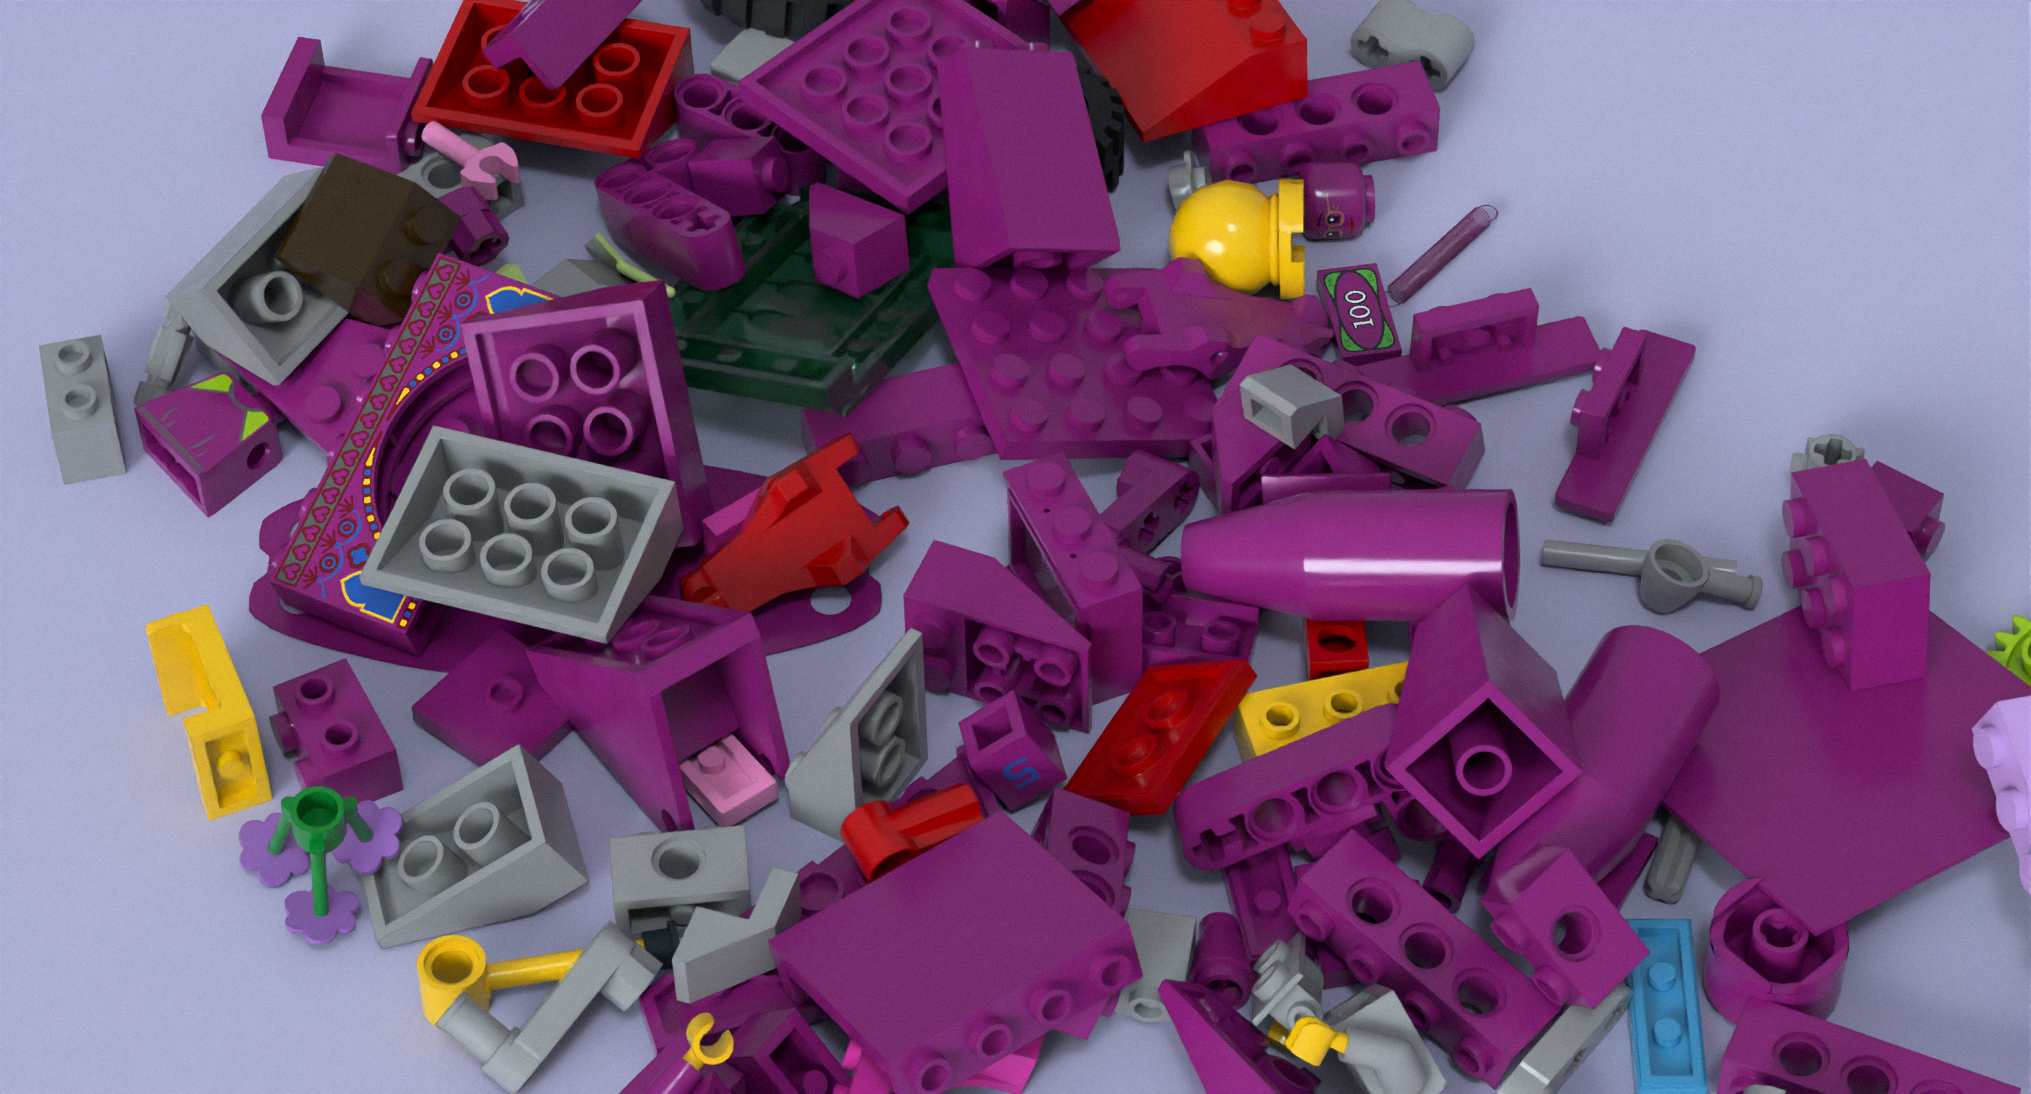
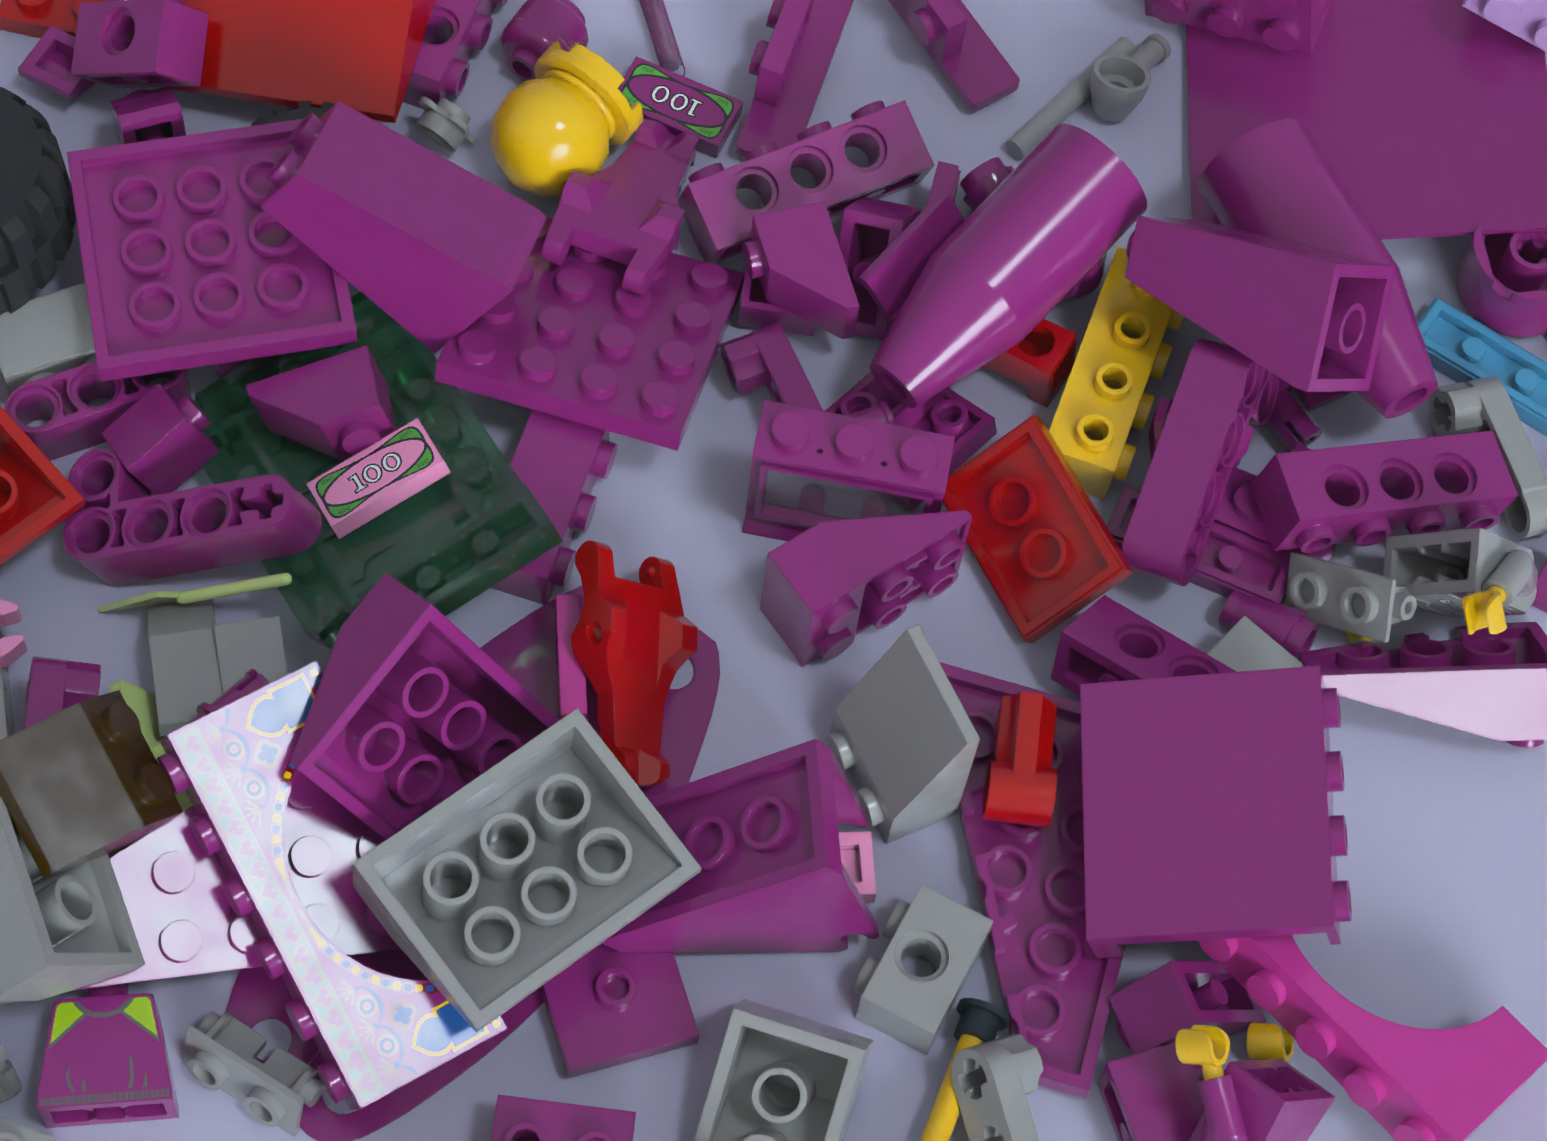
camera: 65 degrees left, 15 degrees up
(269, 502) = (223, 1058): none -> light grey hinge
(729, 949) = (1045, 983): light grey slope -> none
(807, 298) = (378, 478): none -> bright pink tile
(1012, 750) = (976, 637): magenta brick -> none
(1291, 405) = (819, 209): light grey slope -> none
(1597, 943) = (1471, 379): magenta brick -> none

